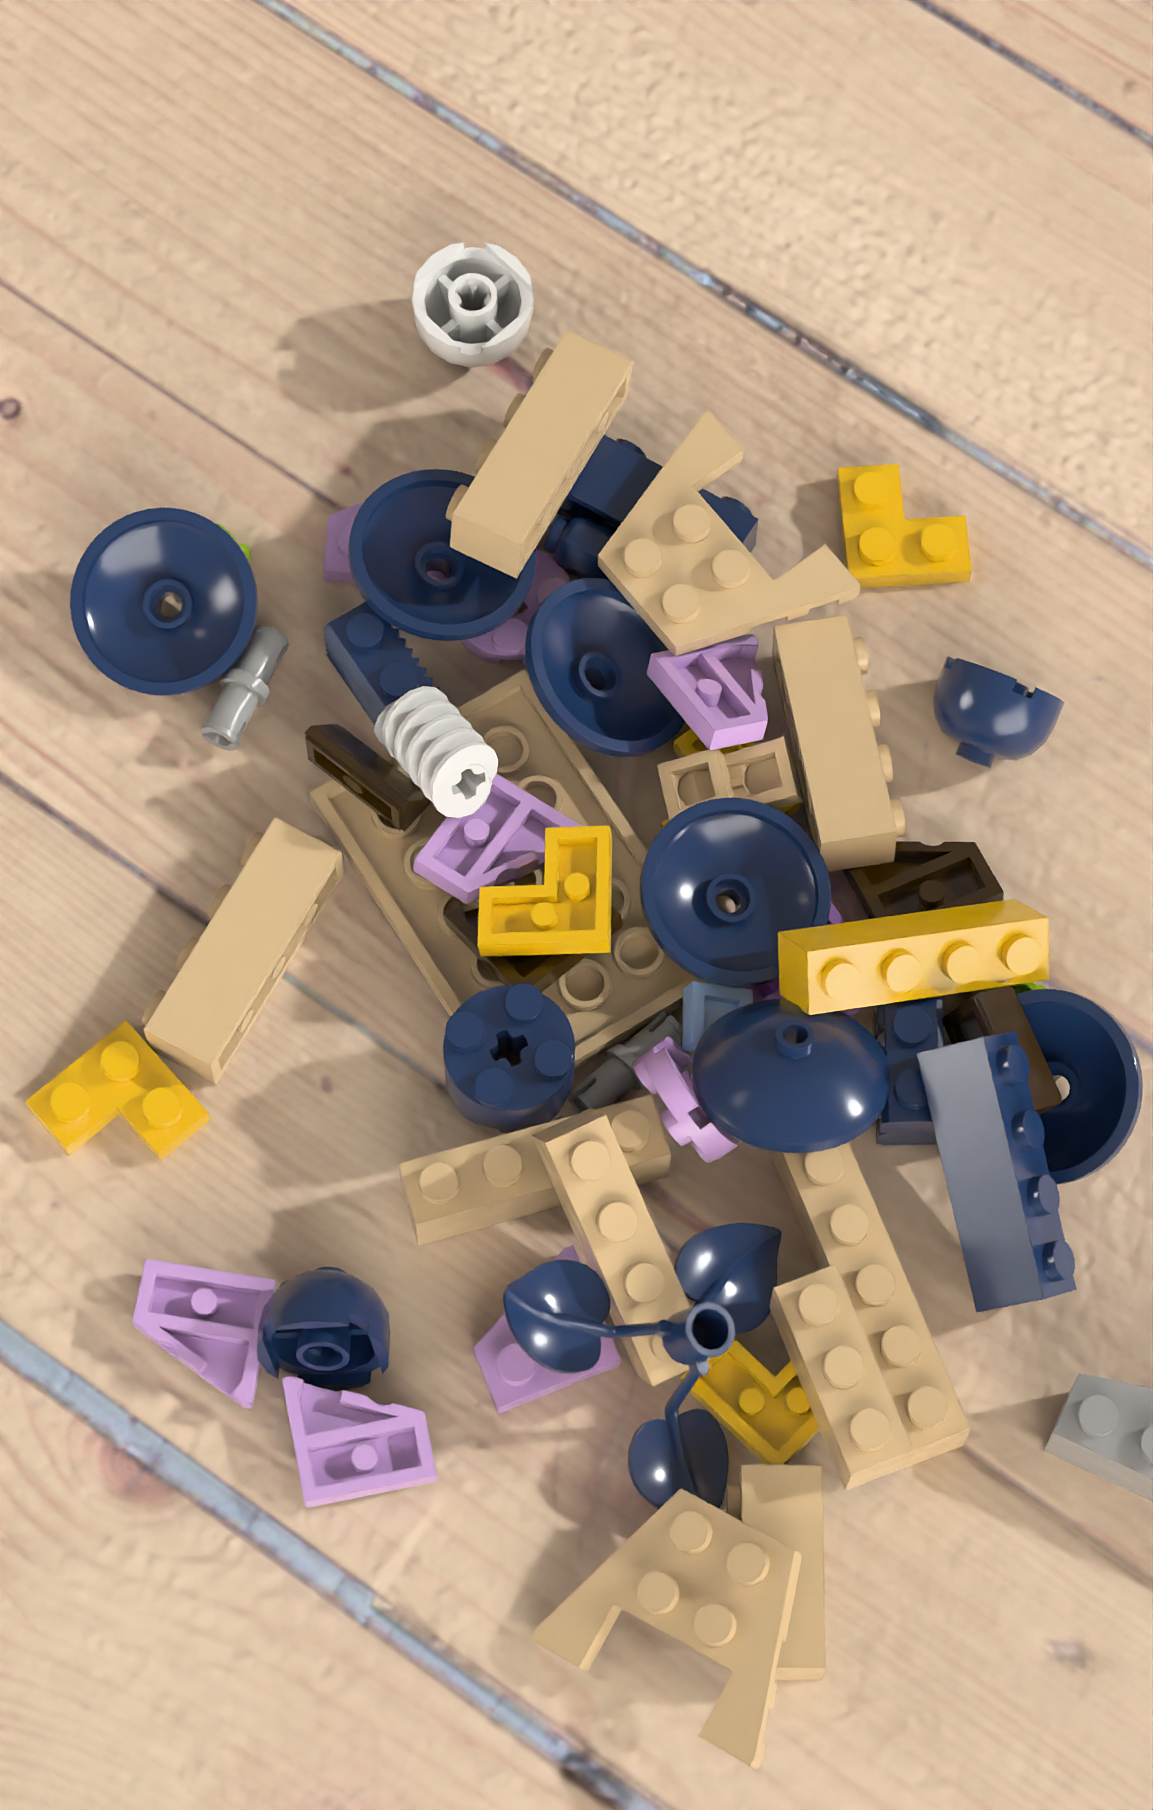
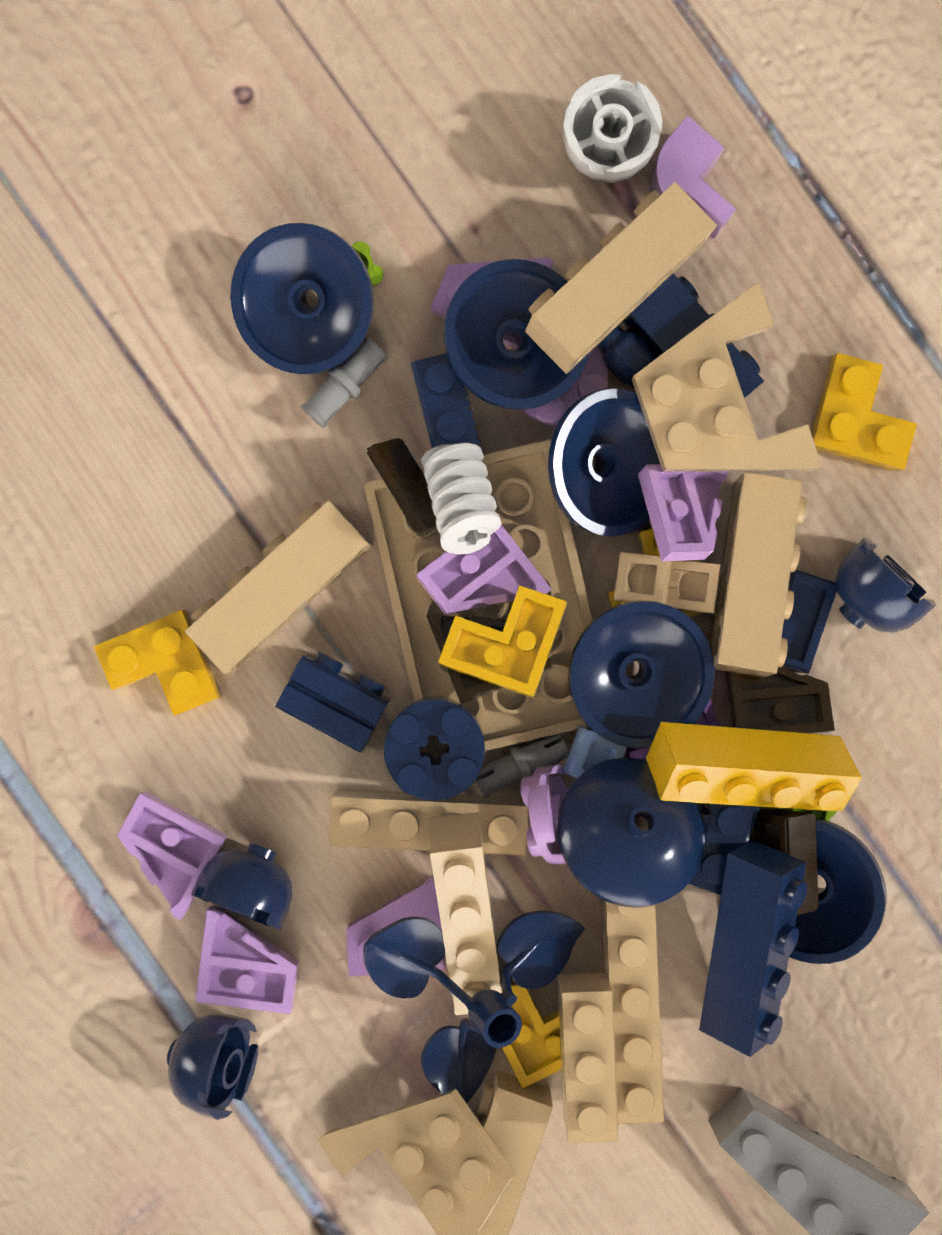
camera: 15 degrees right, 20 degrees up
(350, 1569) = (212, 1063): none -> dark blue cylinder
(361, 1064) = (334, 701): none -> dark blue brick
(584, 307) = (687, 160): none -> lavender brick
(919, 781) = (808, 618): none -> dark blue tile

